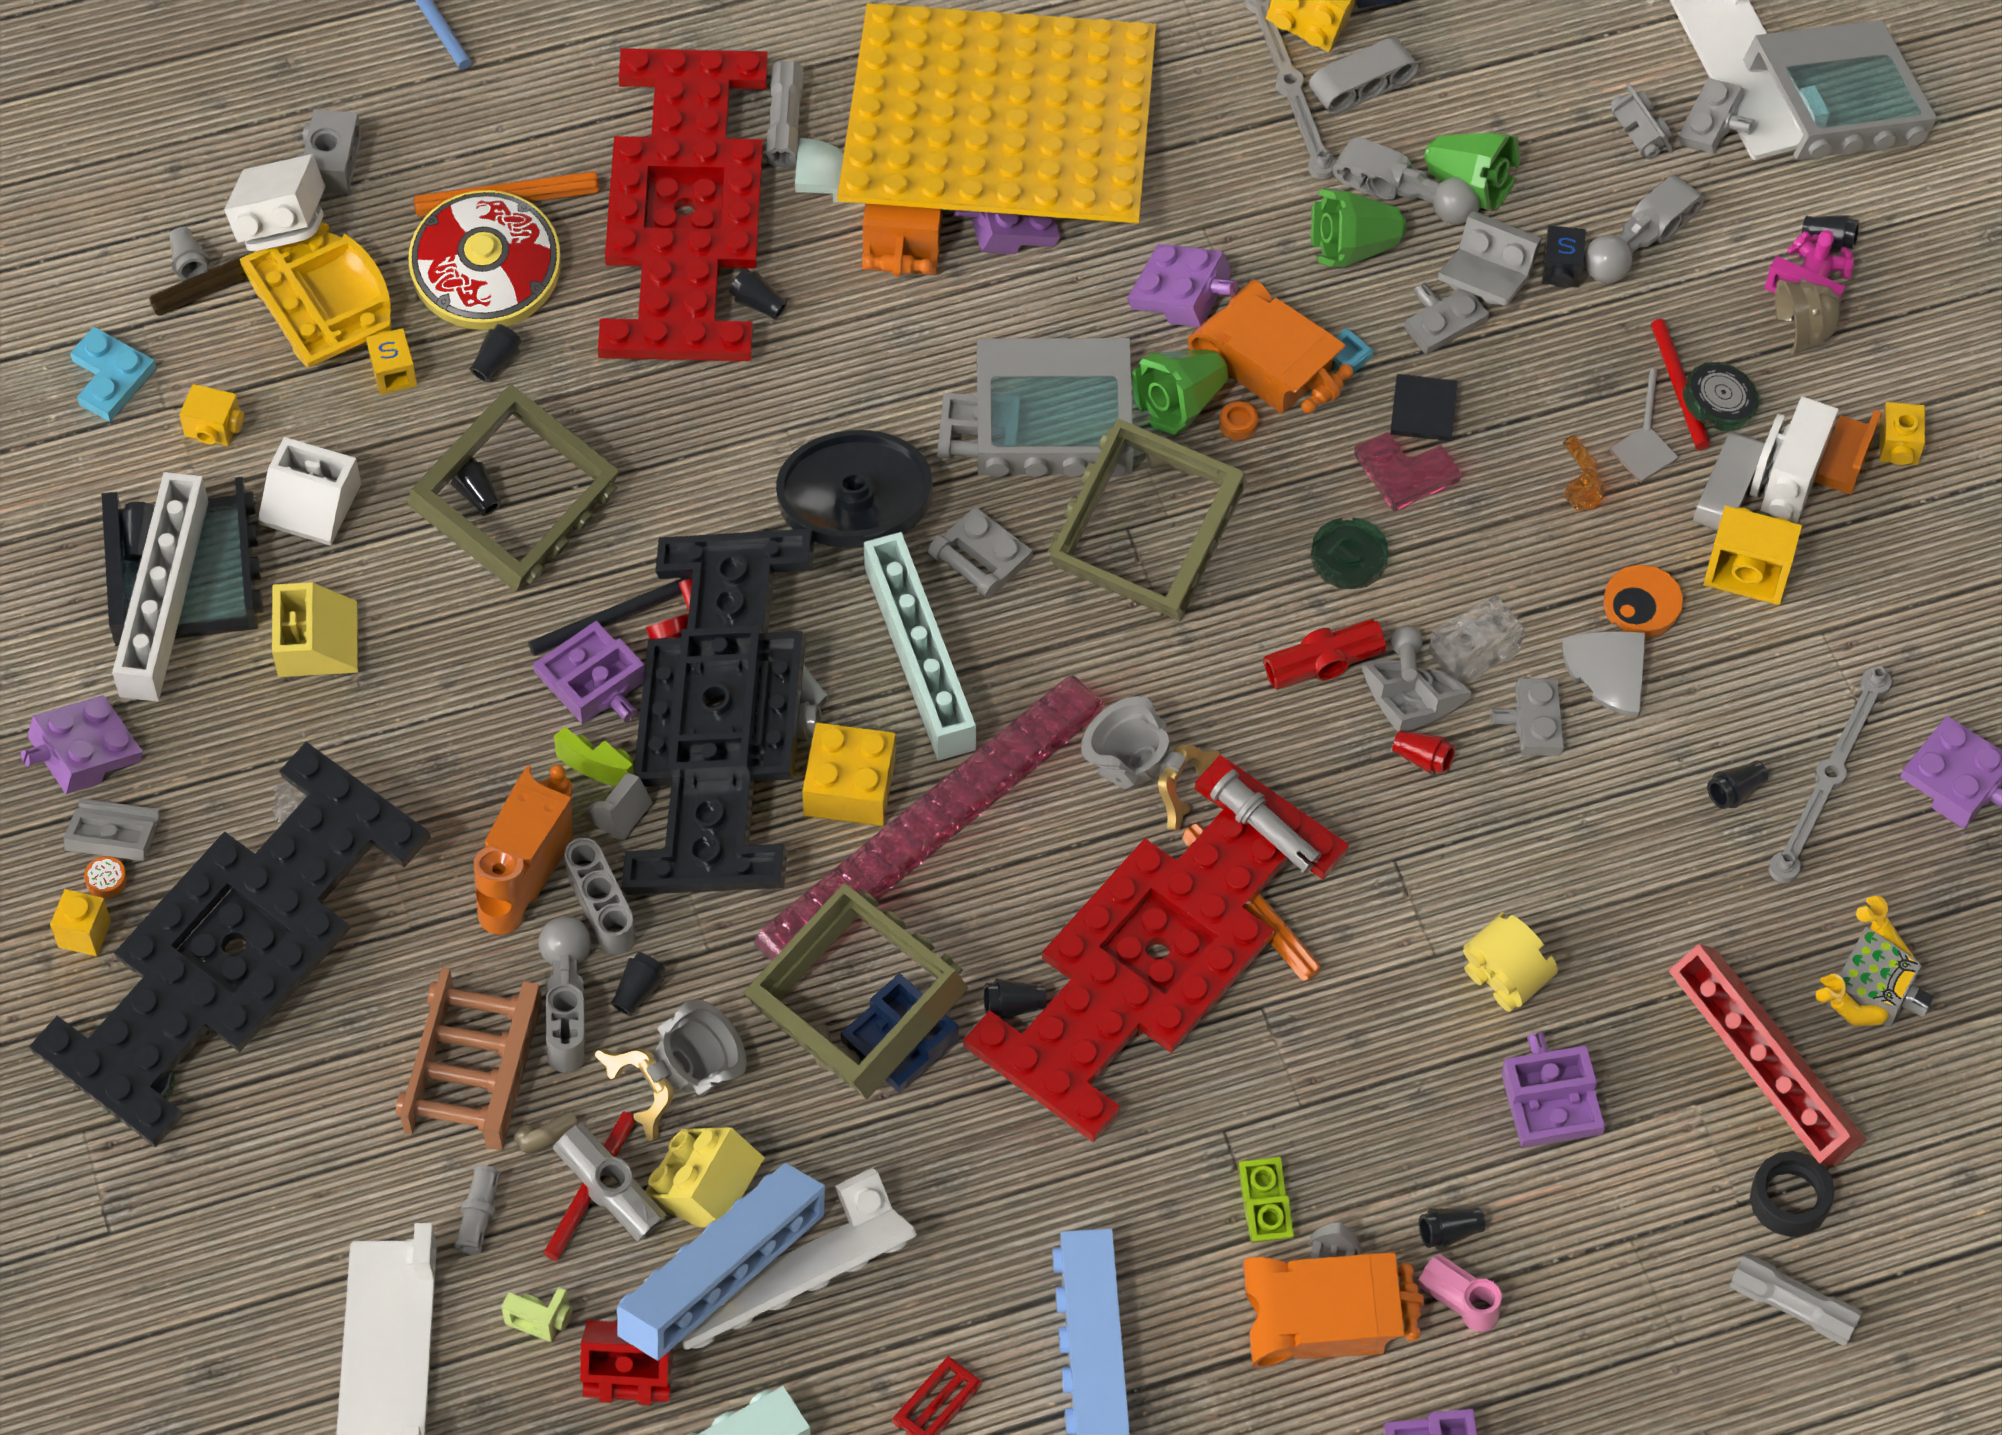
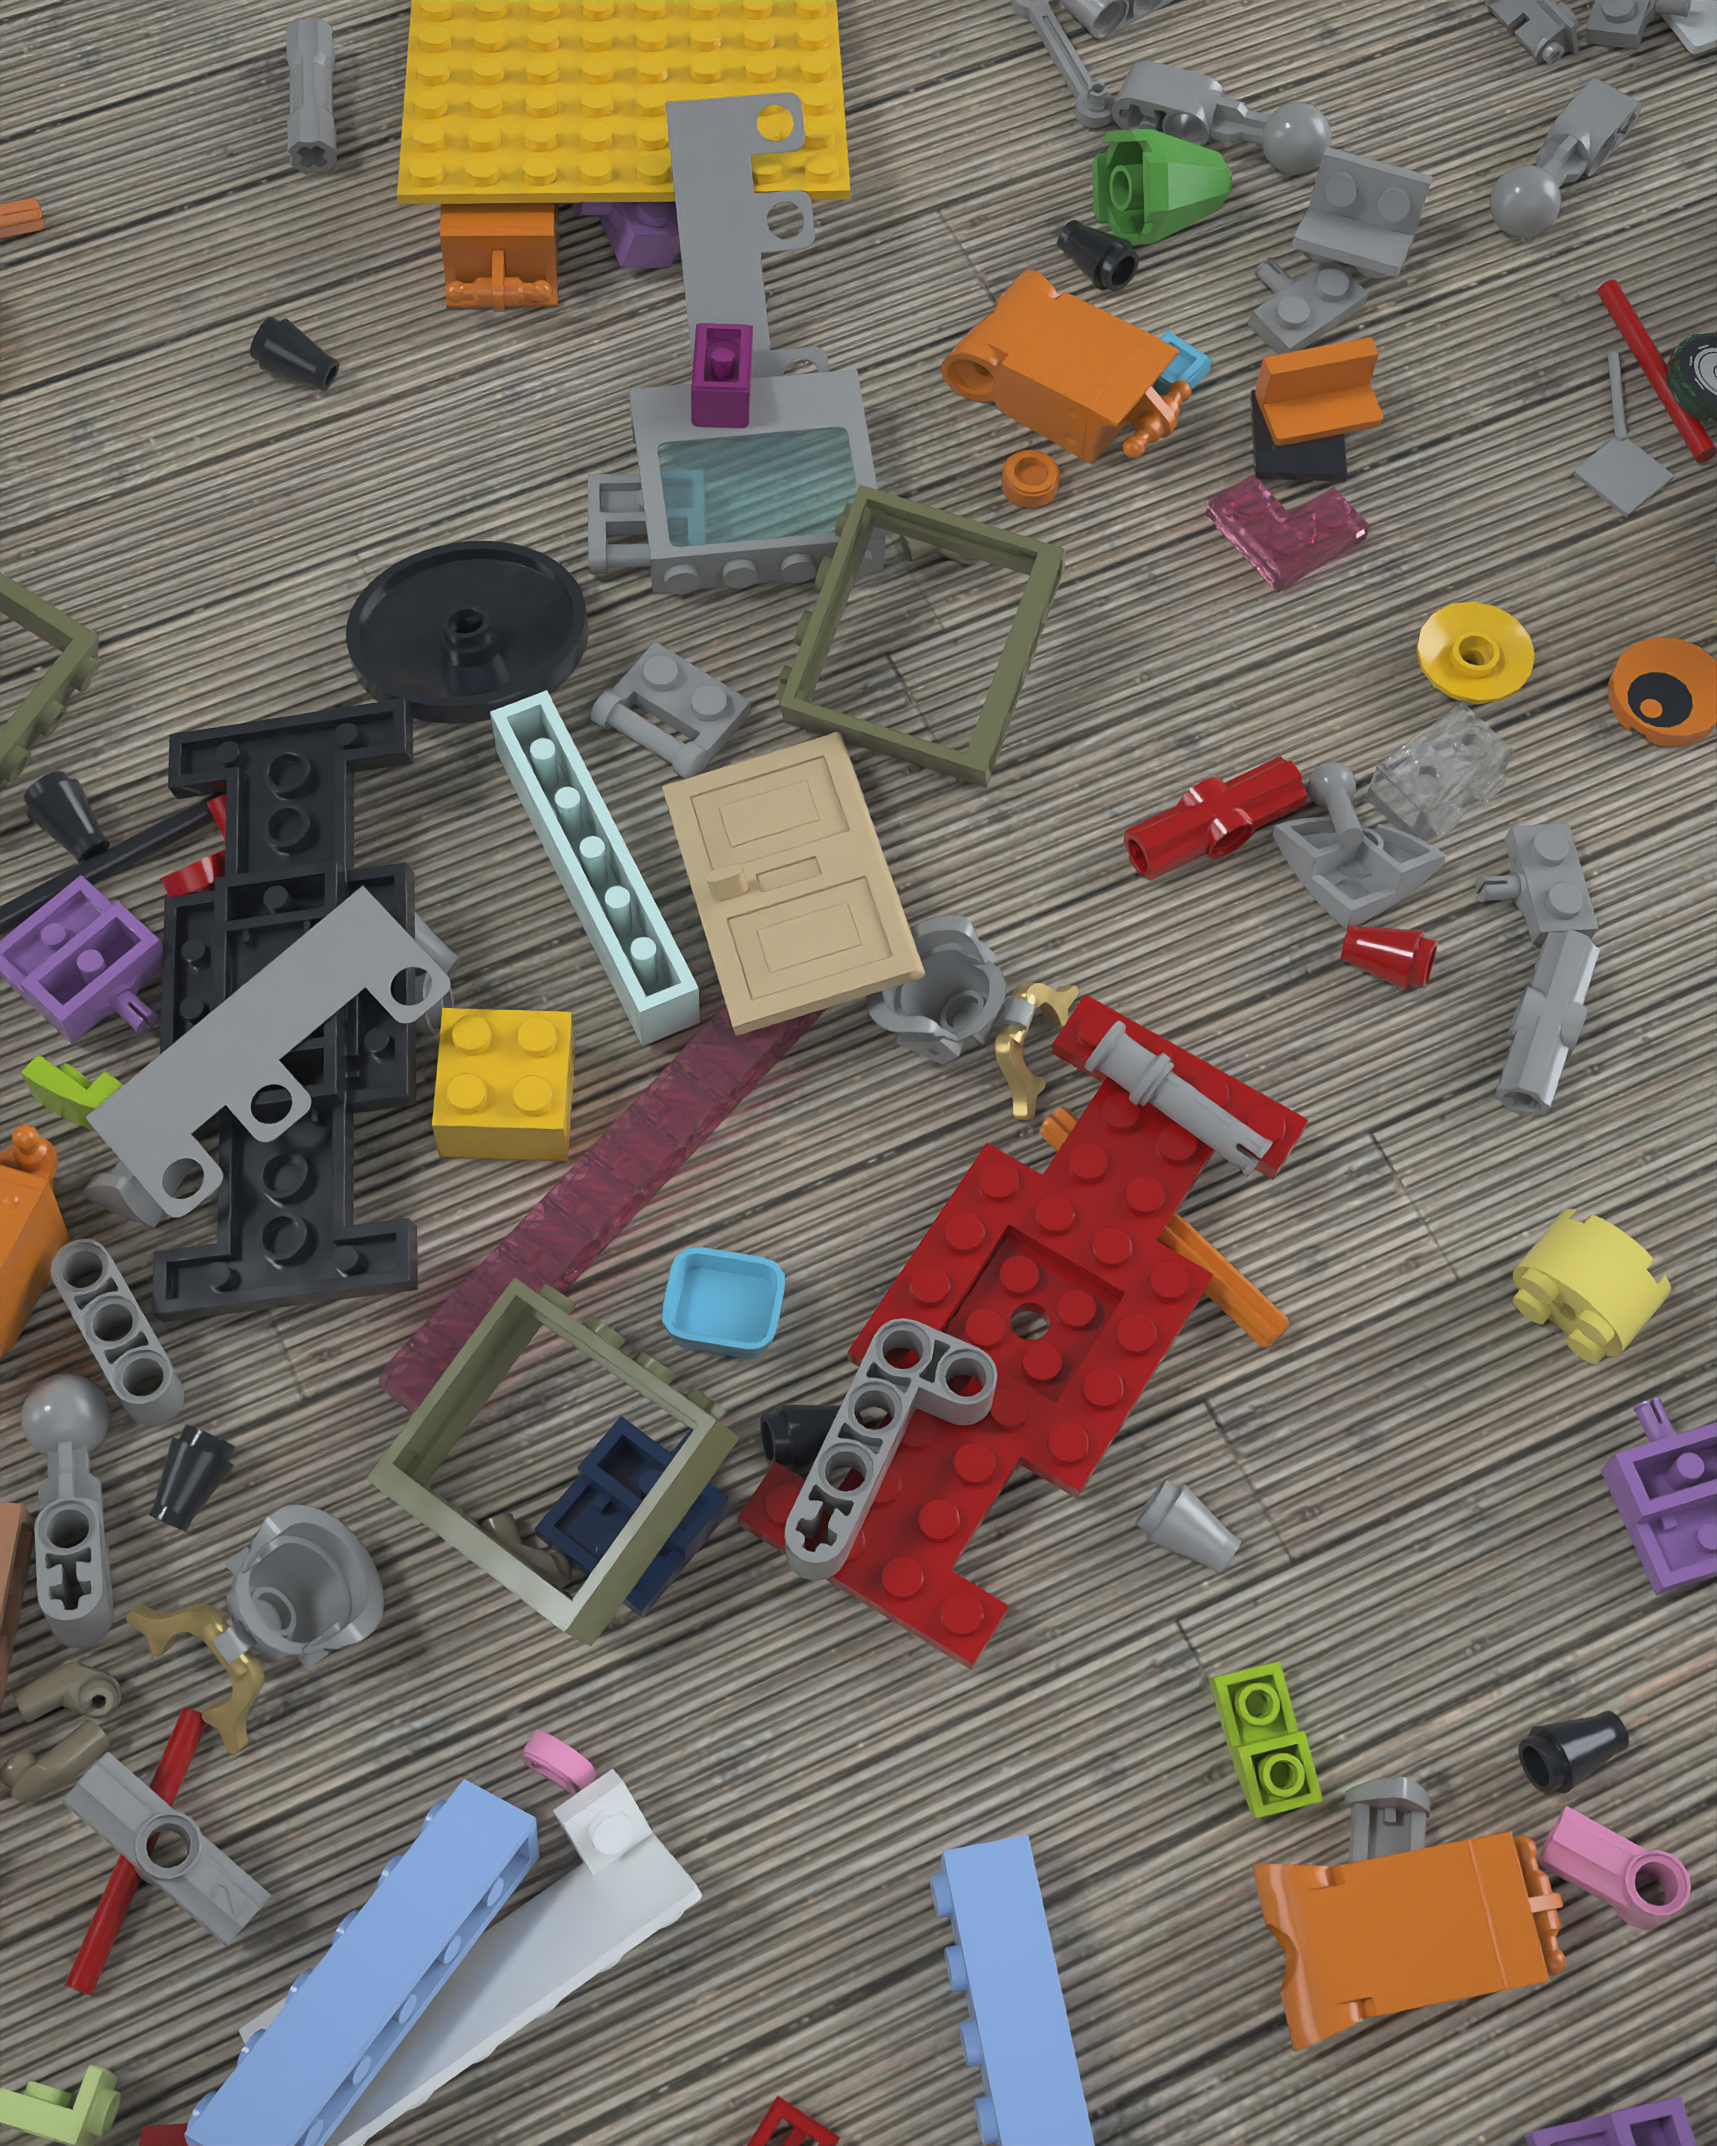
camera: 10 degrees left, 5 degrees up
(558, 1093) = (71, 1686): none -> dark tan arm
(588, 582) = (65, 814): none -> black cone
(690, 167) = (173, 181): red piece -> none
(693, 728) = (244, 1038): none -> light grey piece
(703, 1174) = (328, 1813): light yellow slope -> none
(818, 168) = (368, 171): light aqua brick -> none
(839, 1162) = (558, 1762): none -> bright pink tile
(969, 917) = (723, 1302): none -> medium azure piece
(1038, 334) = (721, 375): none -> magenta slope
(1042, 666) = (791, 883): none -> tan door
(1049, 1005) = (873, 1450): none -> light grey beam
(1053, 238) = (726, 223): none -> light grey piece
(1177, 386) = (935, 434): bright green cone -> none
(1182, 283) = (922, 287): medium lavender plate -> none
(1236, 1076) = (1187, 1527): none -> light grey cone
(1310, 273) = (1100, 255): none -> black cone
(1349, 553) = (1224, 660): clear green tile -> none
(1440, 380) = (1319, 391): none -> orange panel
(1477, 159) = (1319, 72): bright green cone -> none
(1517, 803) = (1547, 1023): none -> light grey piece
(1518, 551) = (1479, 635): none -> yellow dish
(1563, 256) = (1460, 204): black brick -> none
(1587, 489) = (1559, 530): clear orange plate -> none
(1609, 667) = (1641, 794): light grey brick -> none

